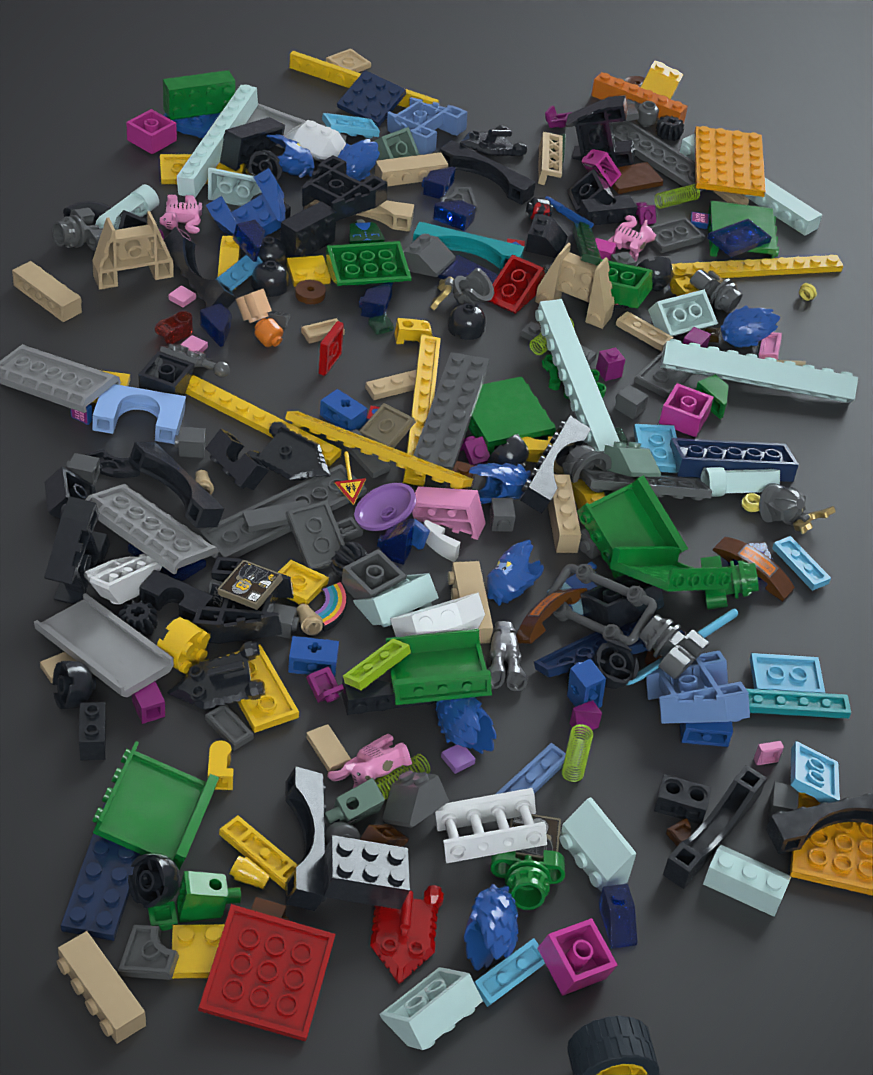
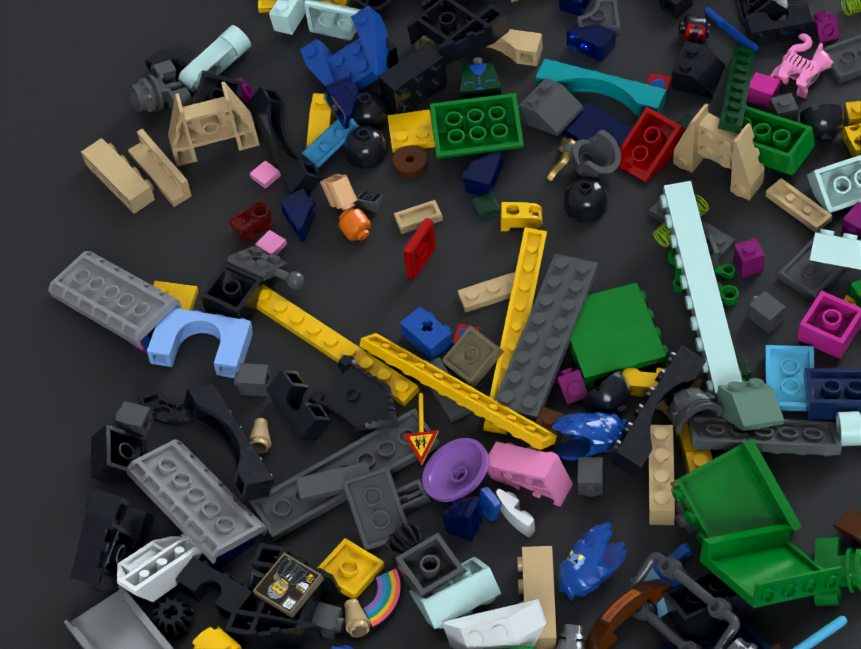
camera: 20 degrees right, 10 degrees up
(88, 287) = (160, 169): none -> tan fence
(186, 213) = (276, 57): bright pink animal -> none

